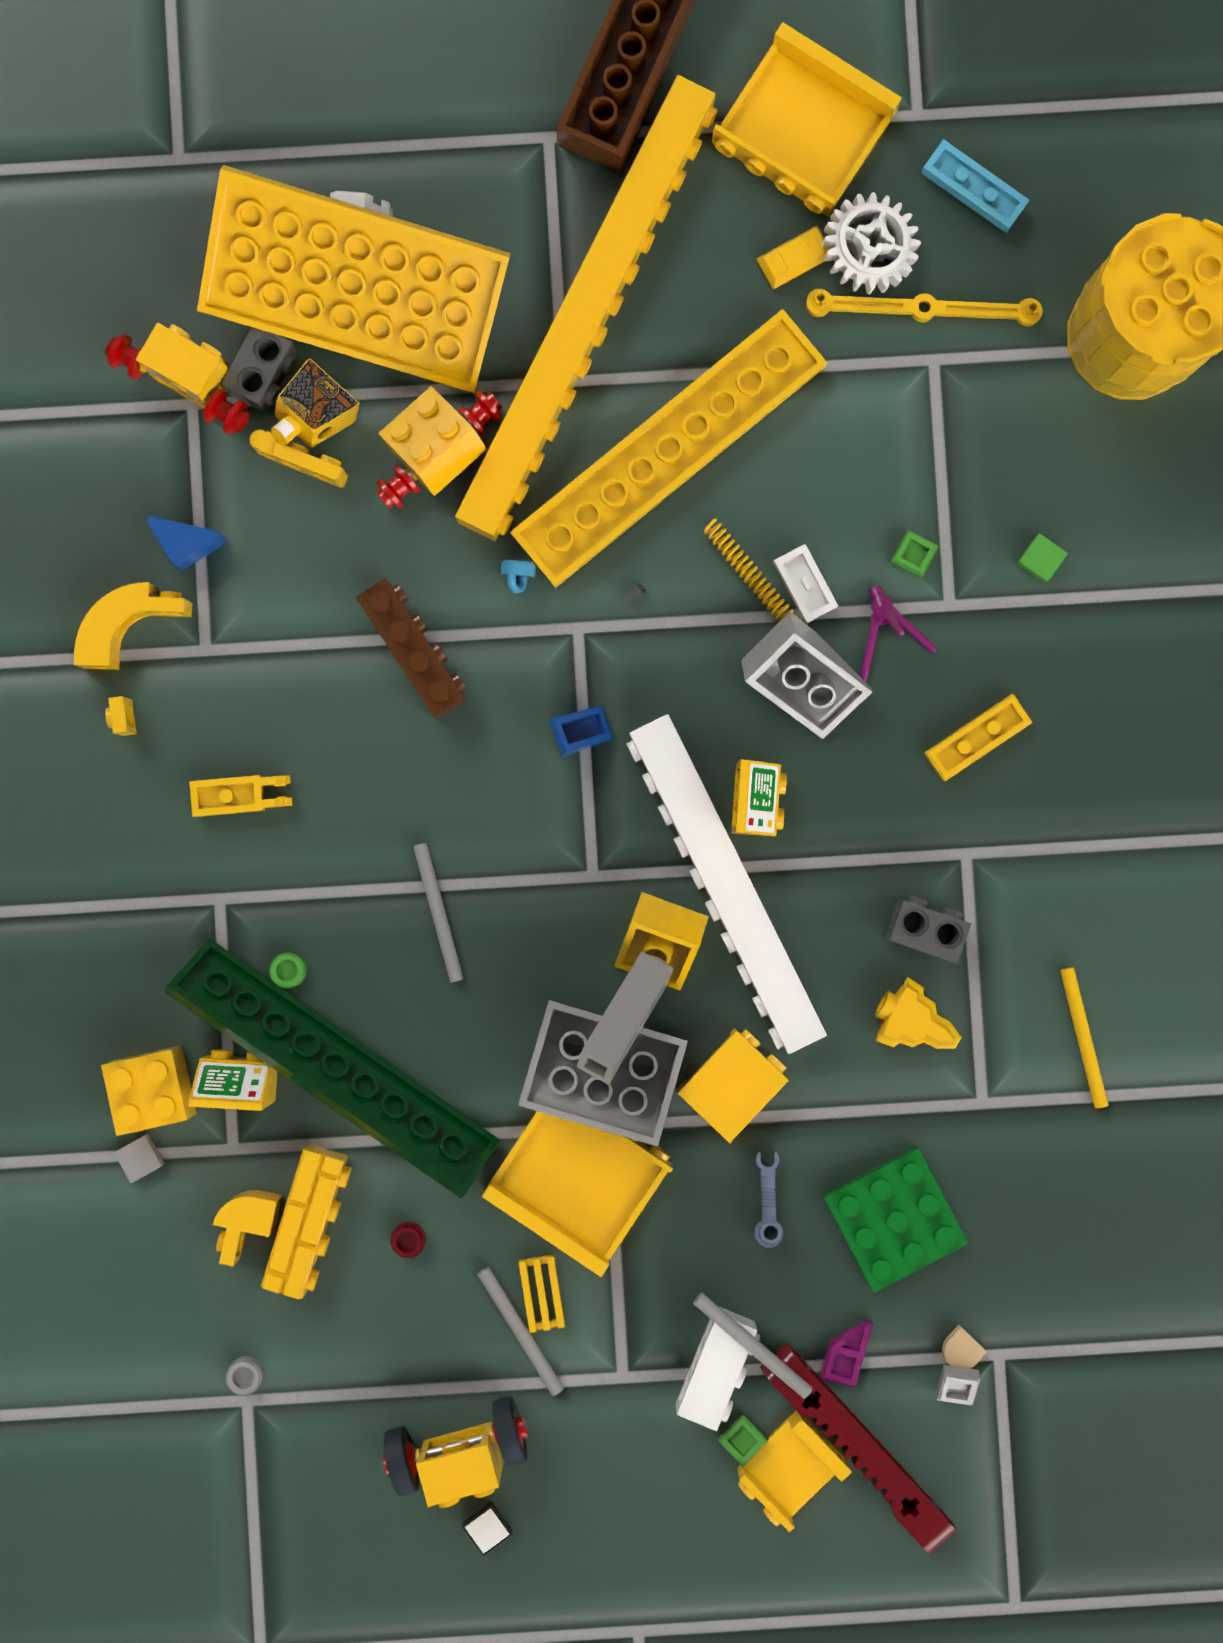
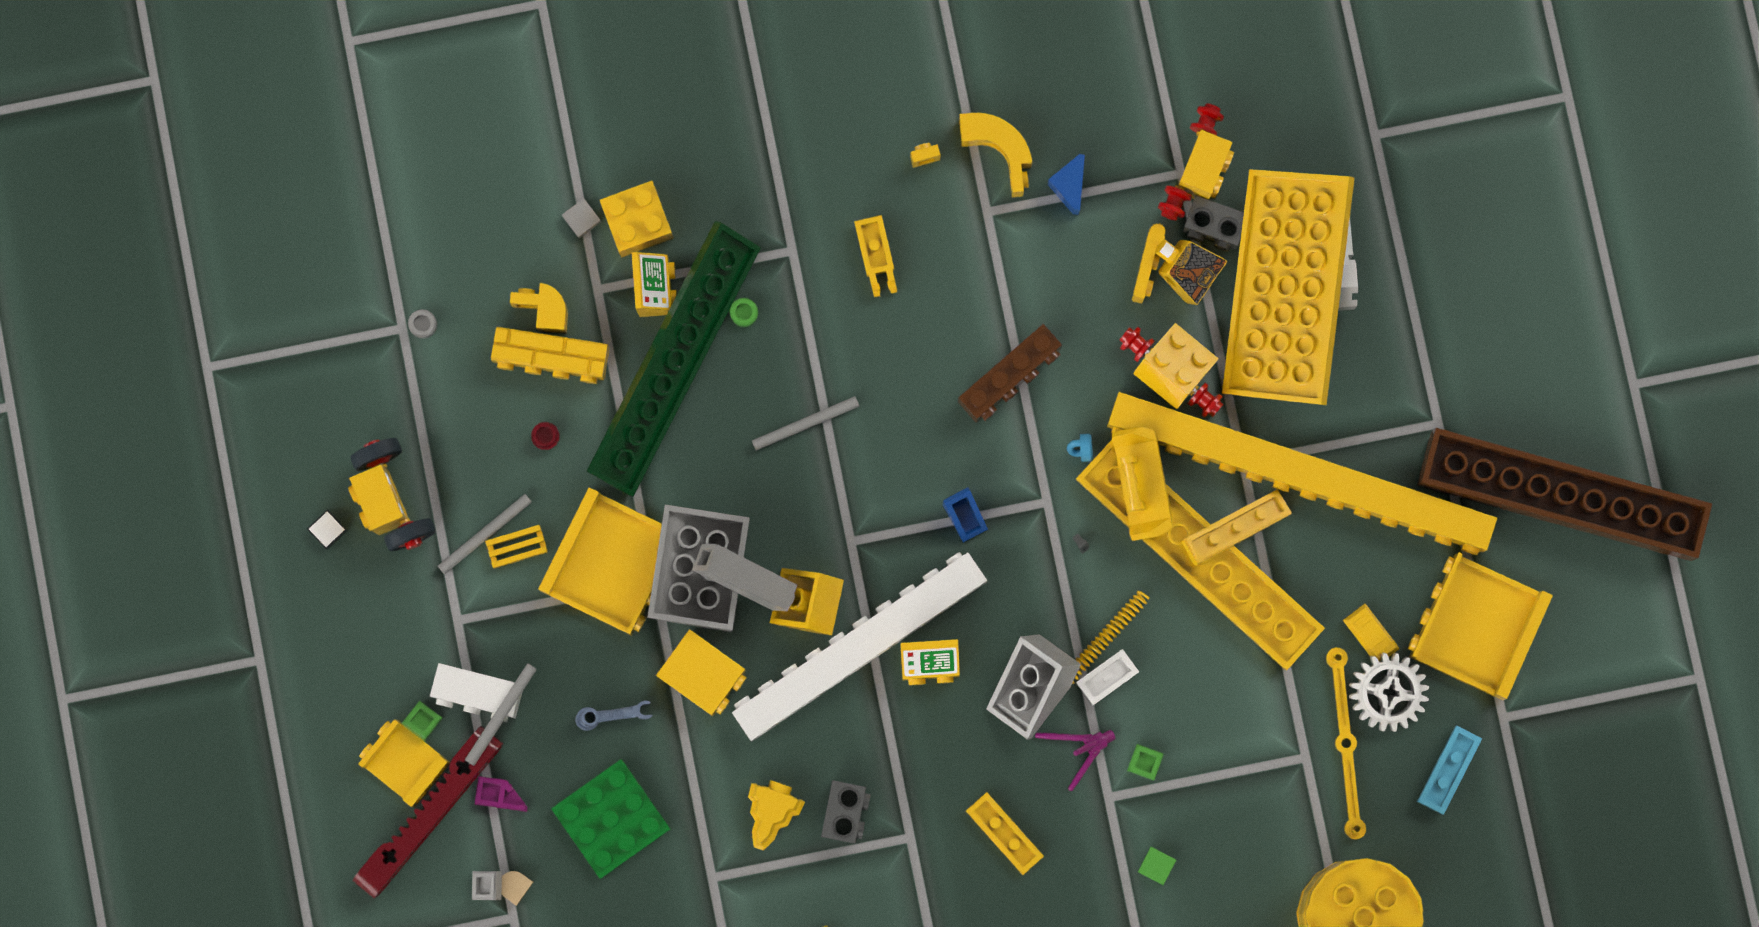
camera: 85 degrees right, 5 degrees down
(573, 503) = (1142, 482): none -> yellow piece
(644, 398) = (1236, 527): none -> yellow tile

